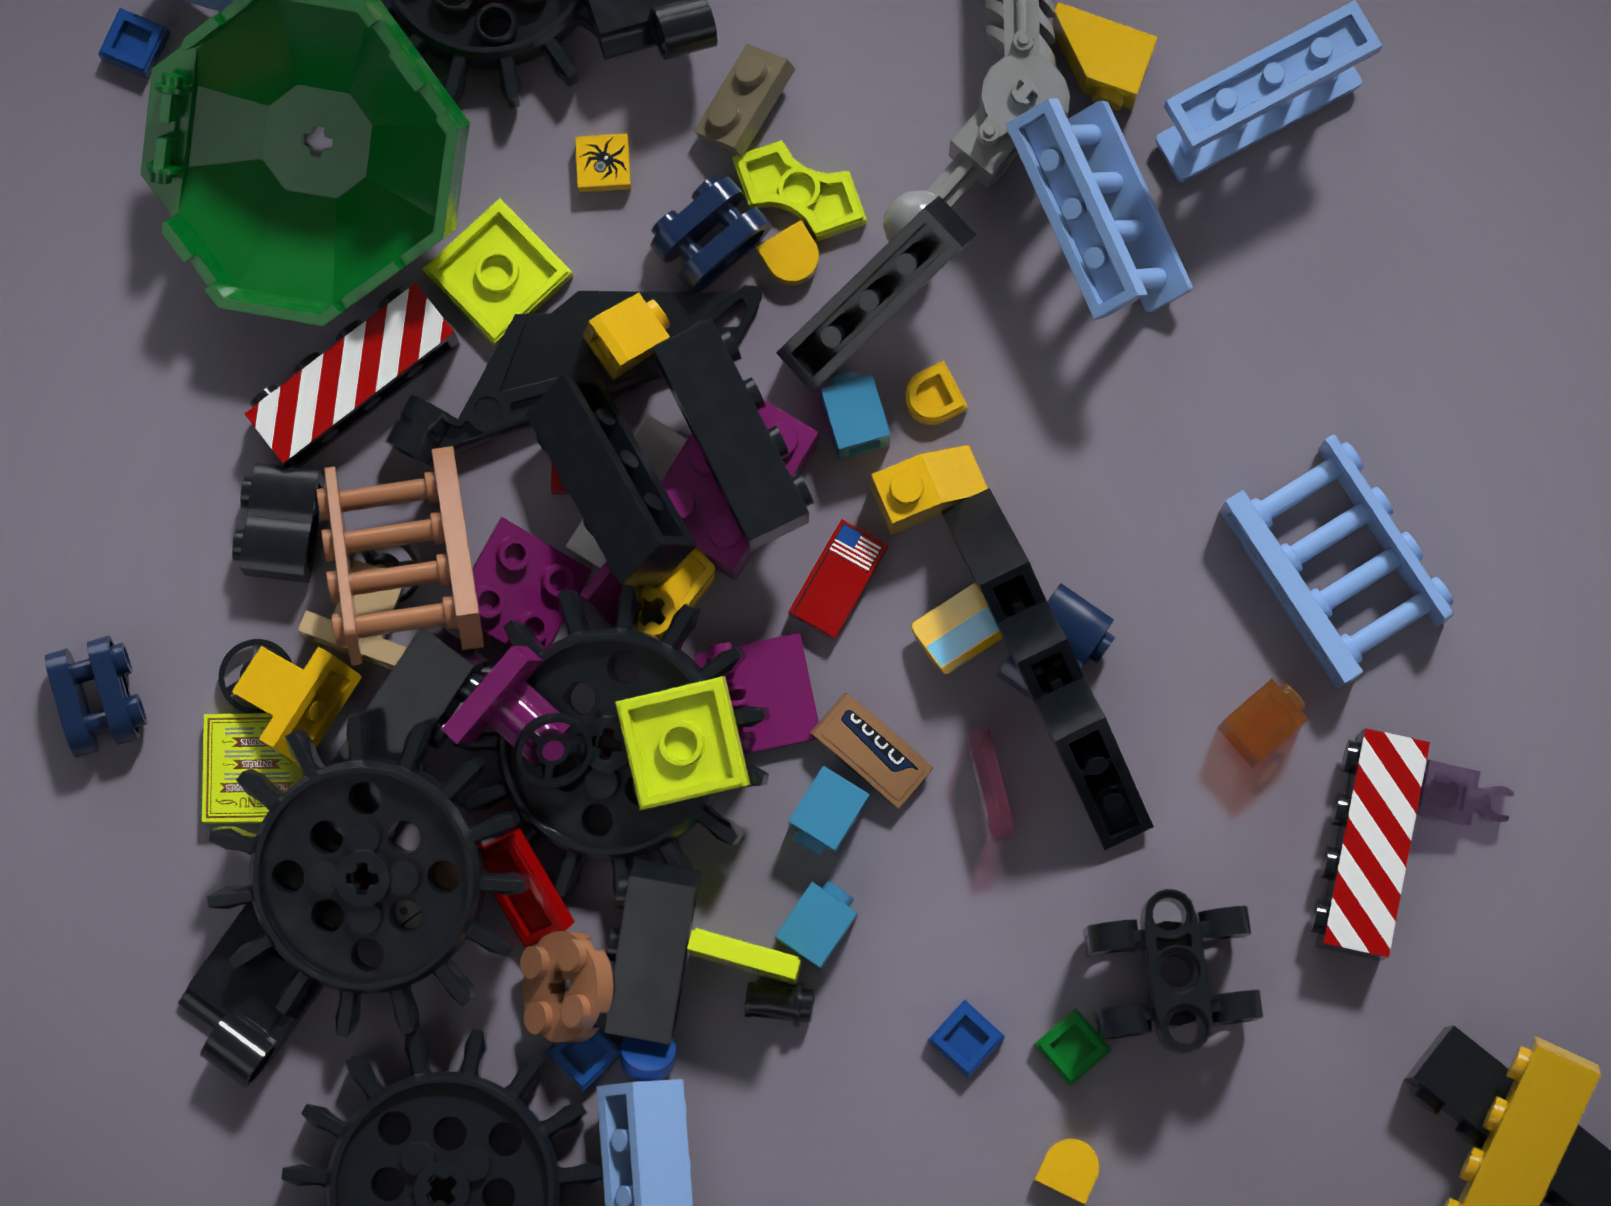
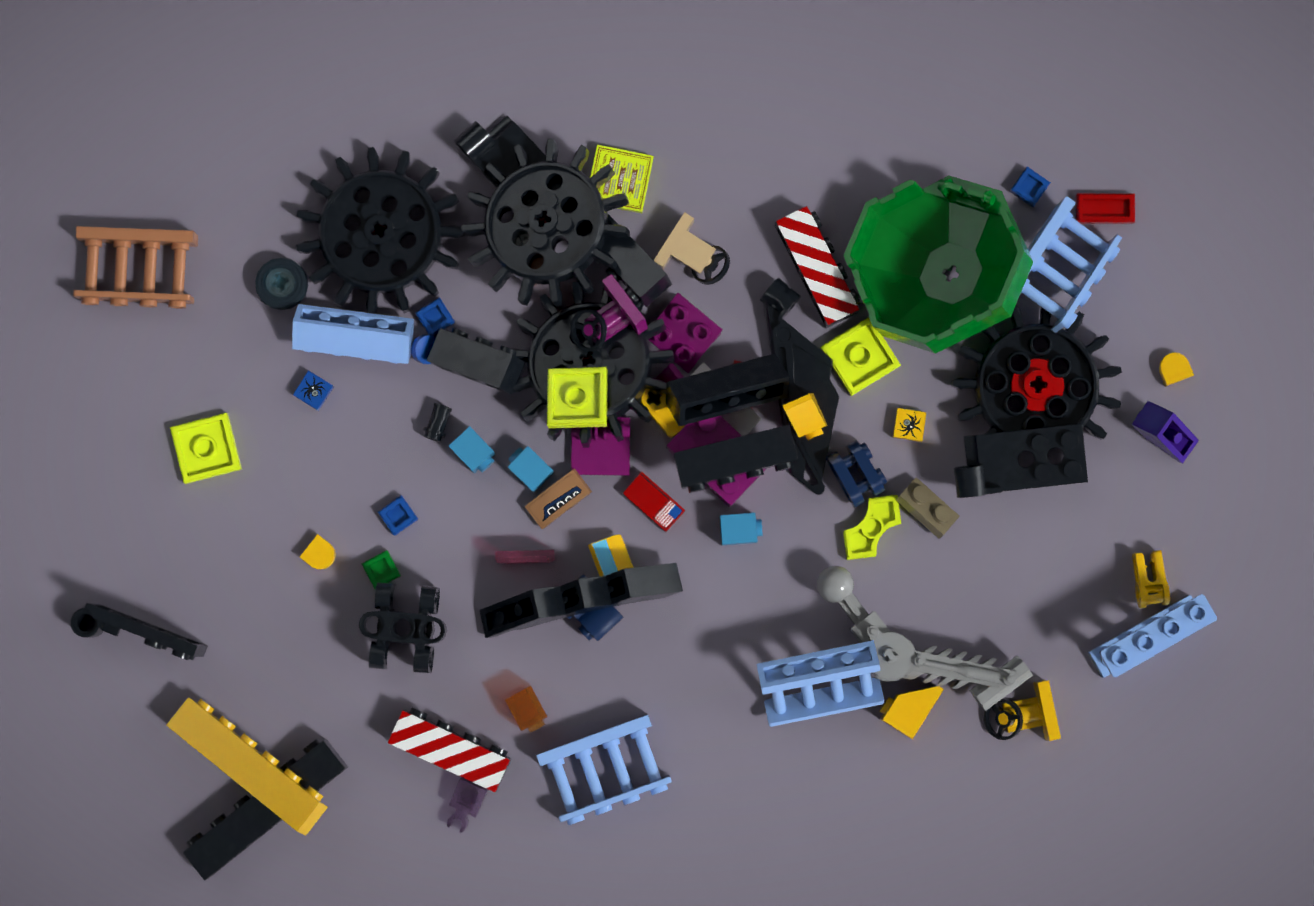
camera: 100 degrees right, 5 degrees up
(121, 713) = (664, 113): dark blue brick -> none
(279, 523) = (746, 214): black brick -> none
(289, 693) = (648, 204): yellow piece -> none
(450, 568) = (696, 295): nougat fence -> none
(540, 907) = (510, 309): red tile -> none
(546, 967) = (458, 303): nougat plate -> none
(744, 956) = (462, 408): neon yellow tile -> none
(790, 255) = (836, 515): yellow tile -> none
(876, 293) = (798, 552): black brick -> none
(925, 486) = (692, 560): yellow slope -> none
(934, 396) = (742, 575): yellow tile -> none
(1266, 91) = (866, 789): light blue fence -> none

